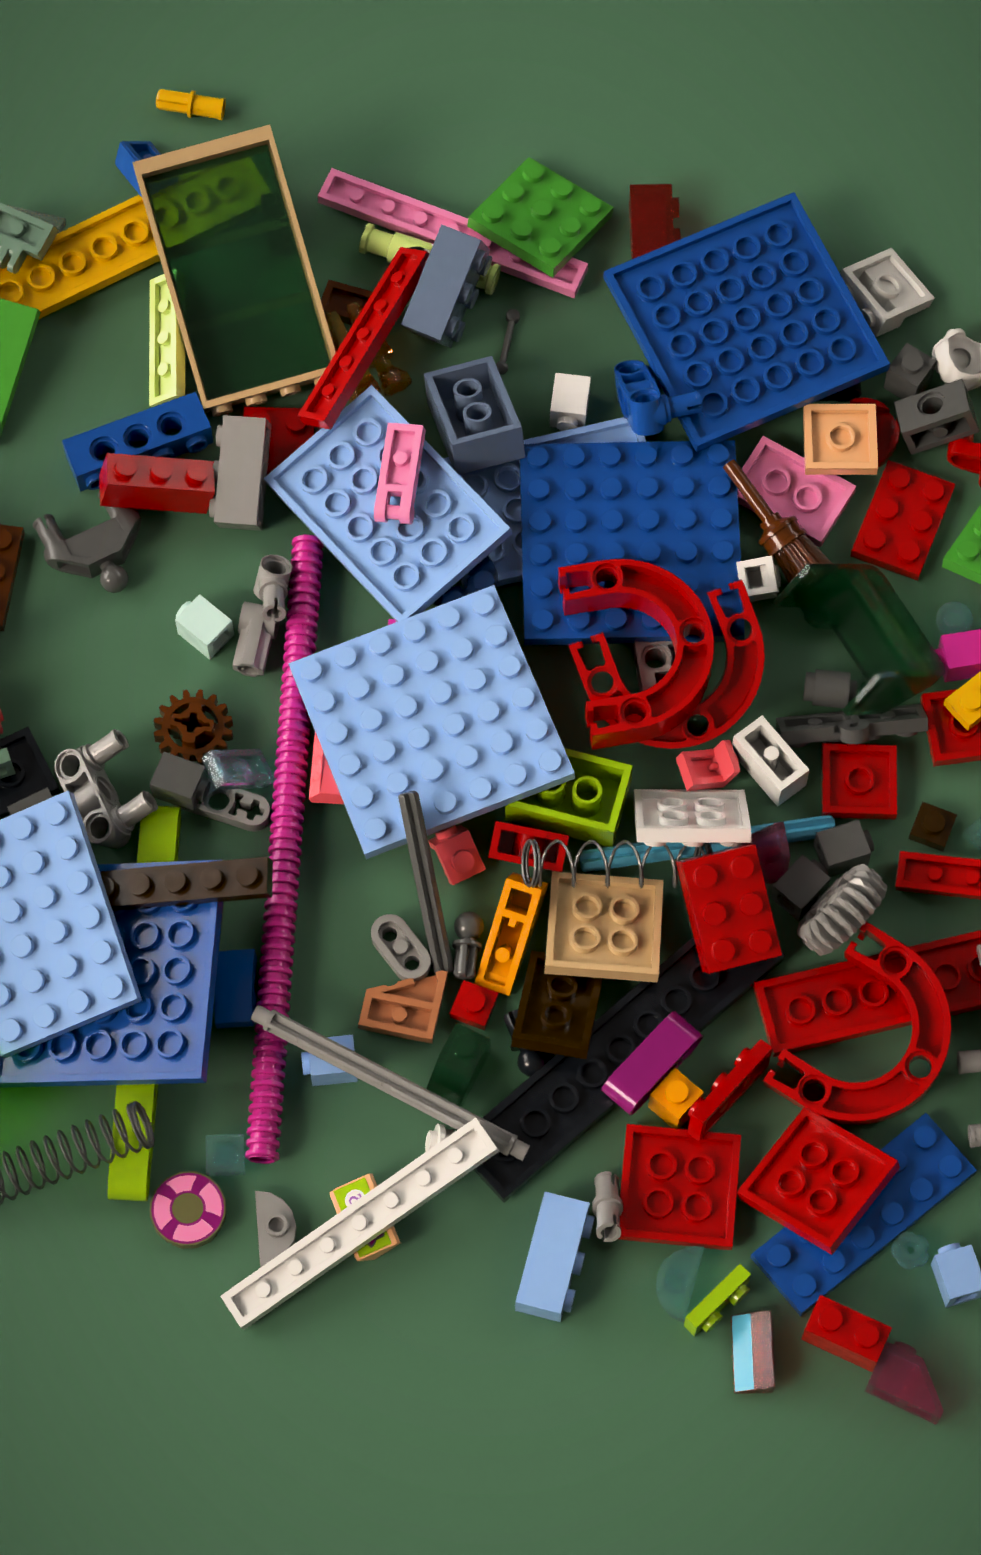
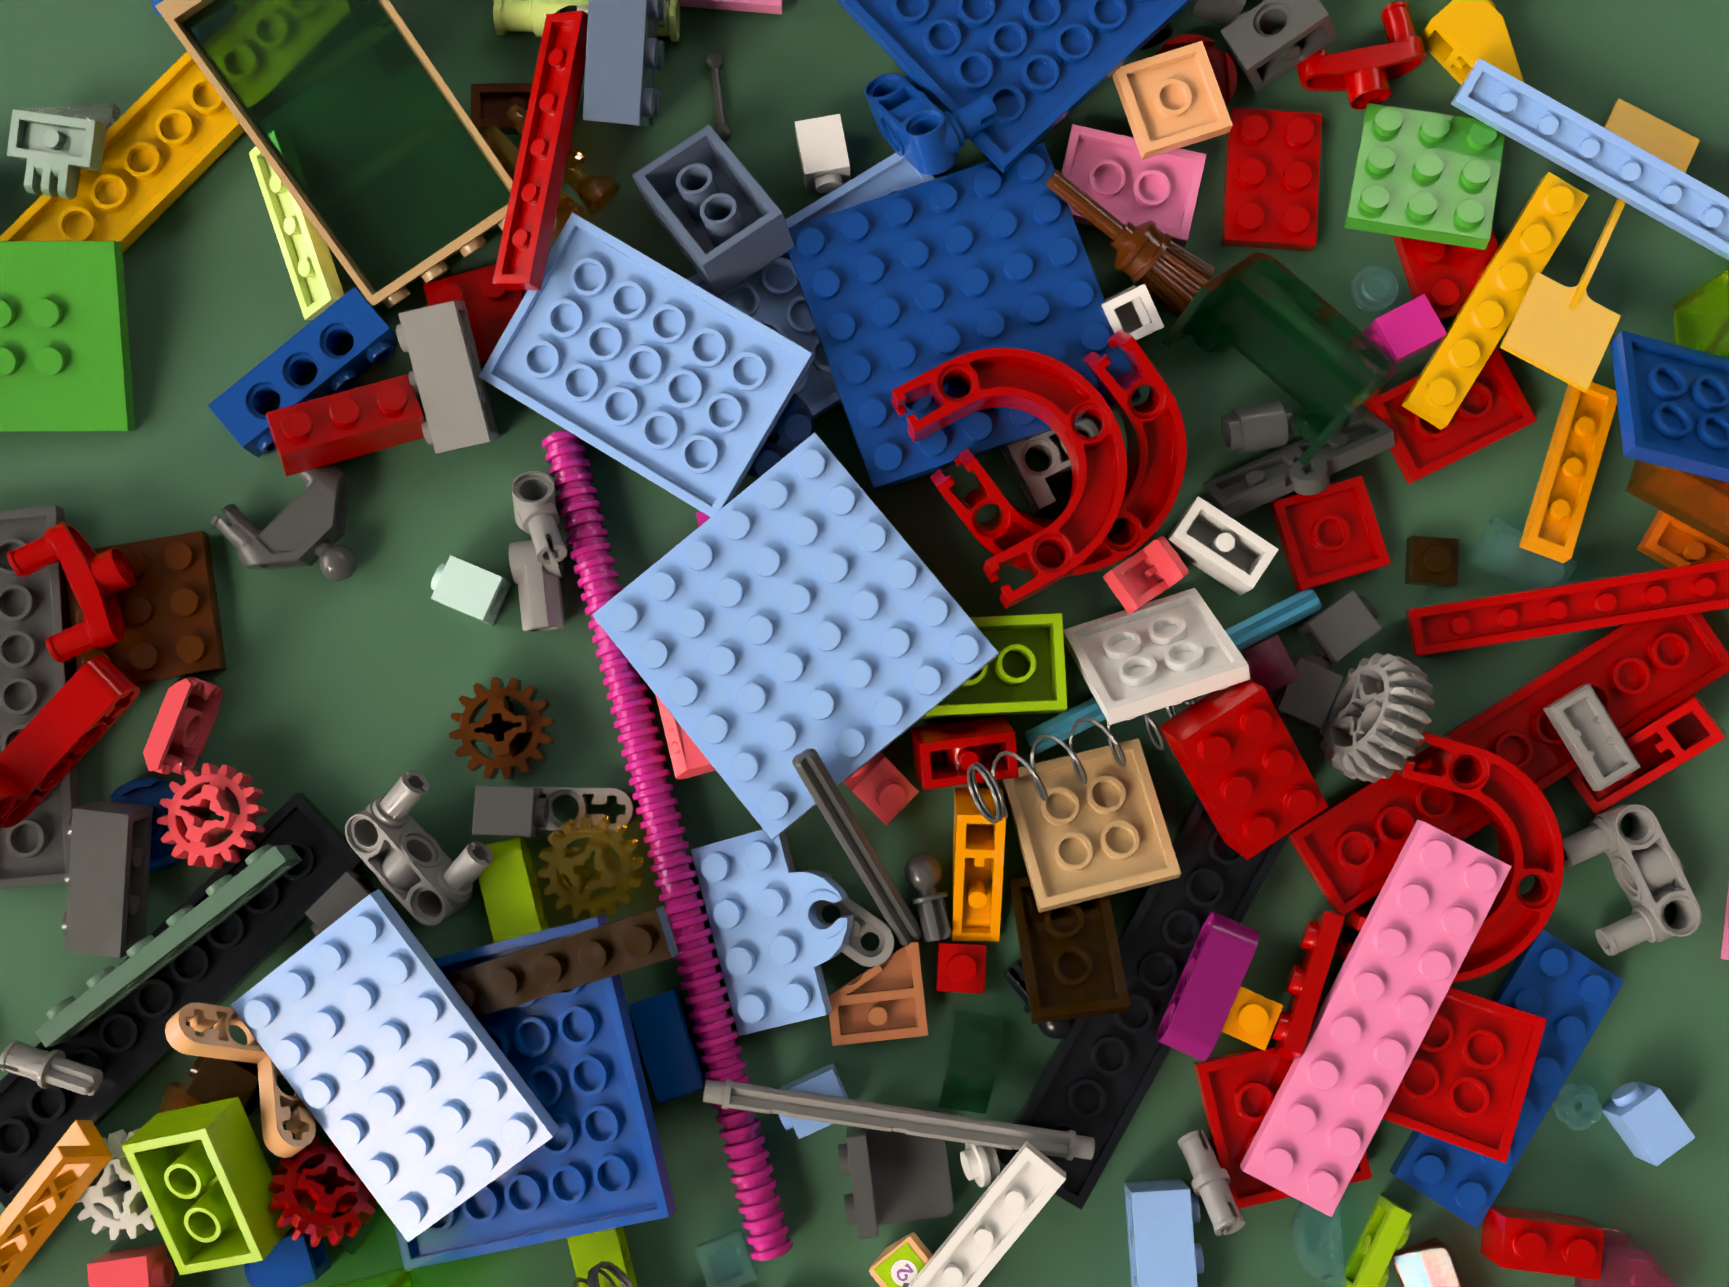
camera: 20 degrees left, 15 degrees up
(231, 830) = (572, 863): none -> clear yellow gear
(238, 769) = (575, 768): clear light blue plate -> none
(340, 928) = (769, 929): none -> light blue plate
(372, 1131) = (894, 1178): none -> dark grey bracket
(399, 472) = (647, 321): bright pink plate -> none
(769, 1122) = (1375, 1017): none -> bright pink plate

